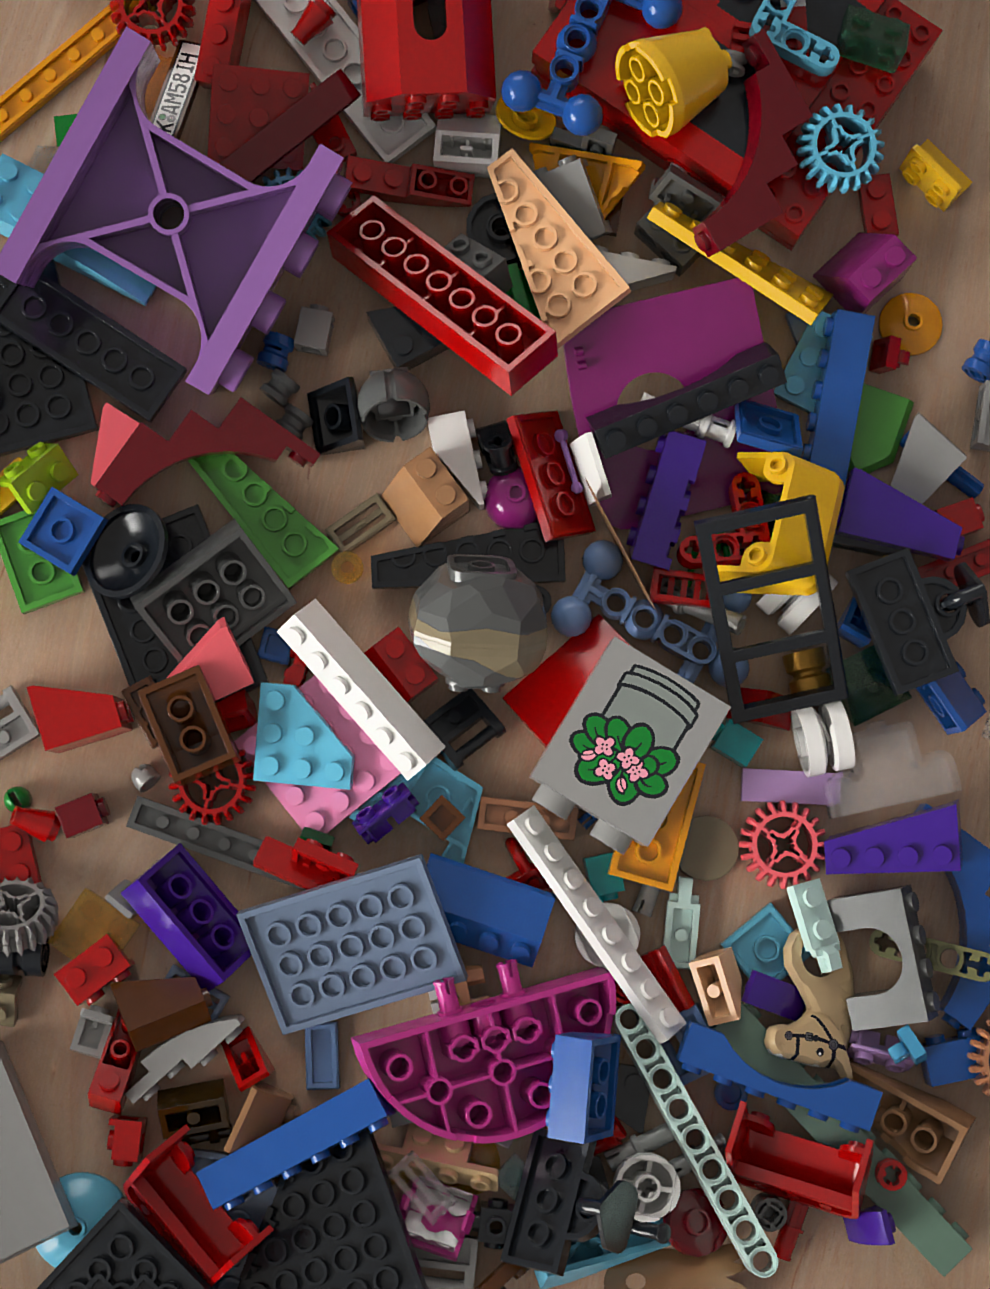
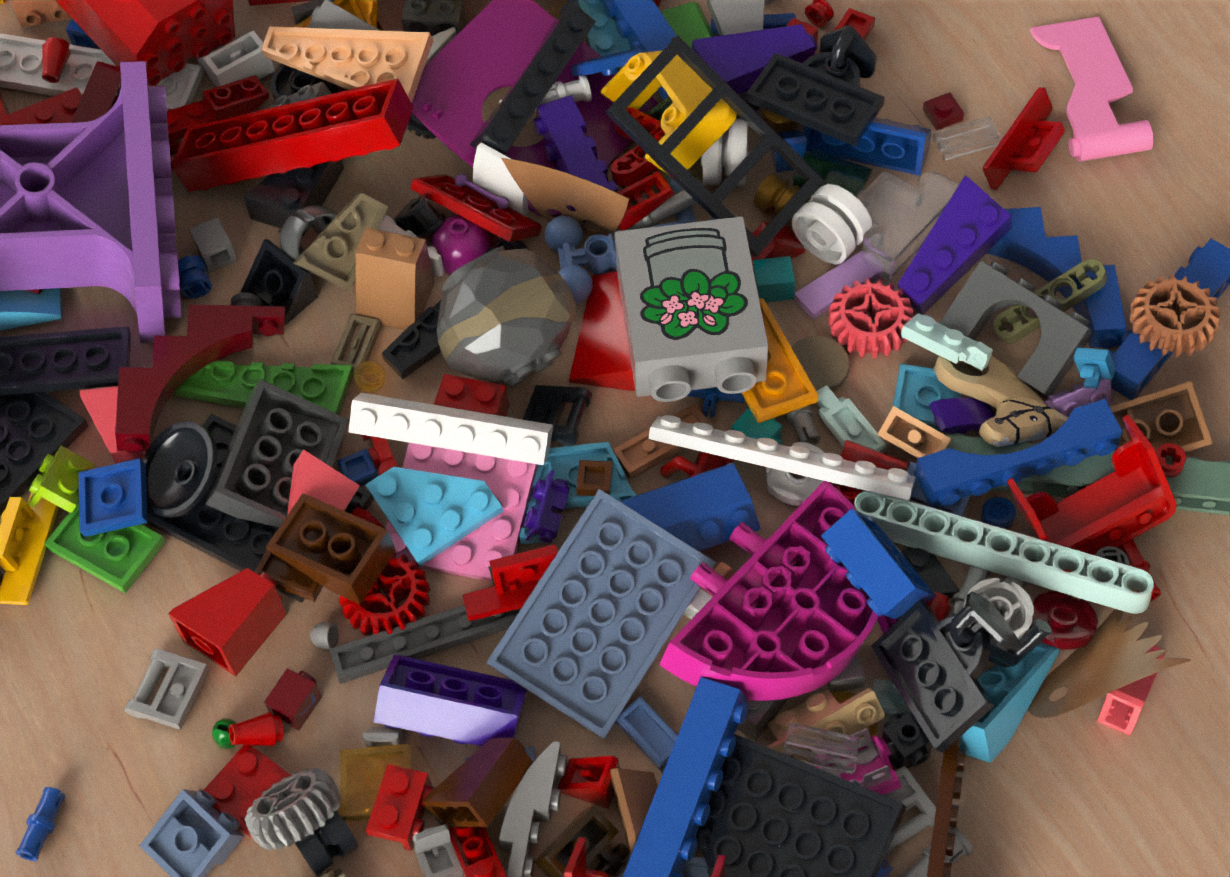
camera: 30 degrees left, 25 degrees down
(279, 388) = (215, 292): dark grey wheel -> none
(405, 434) = (334, 249): none -> dark tan wing
(527, 125) = (263, 20): yellow dish -> none
(872, 1227) = (1193, 508): dark purple slope -> none

